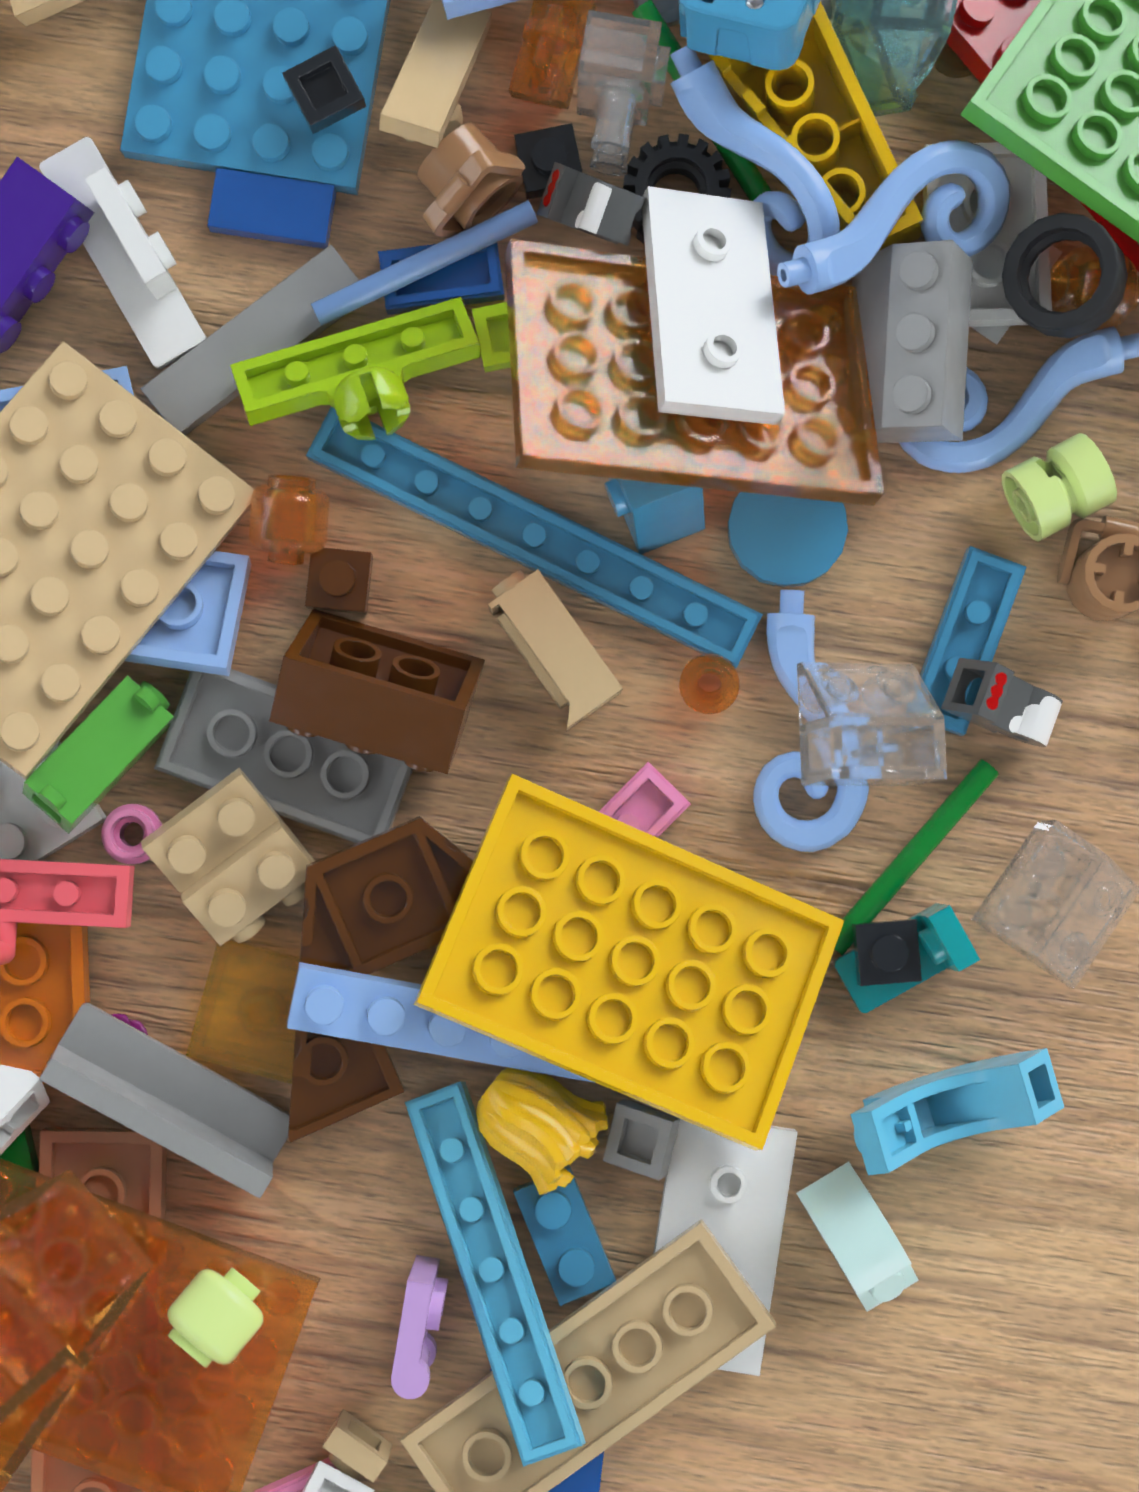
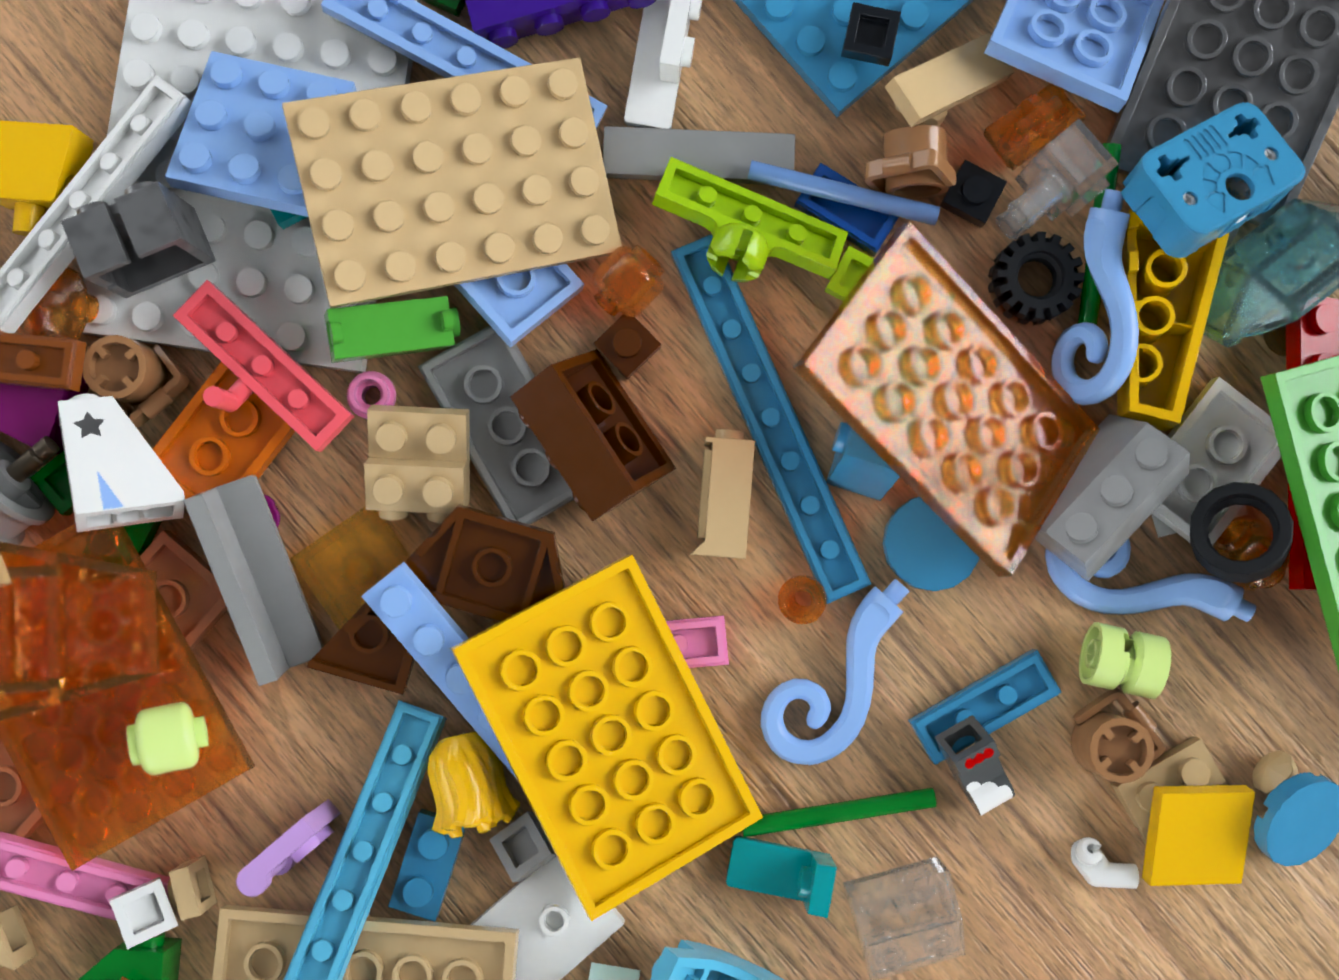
camera: 45 degrees right, 0 degrees up
(272, 208) = (777, 82): blue tile -> none
(589, 204) = (976, 241): dark grey leg -> none
(711, 307) = (1000, 368): white plate -> none
(844, 255) = (1113, 404): light blue plant -> none
(868, 726) = (880, 710): clear slope -> none
(886, 952) = (773, 860): black plate -> none

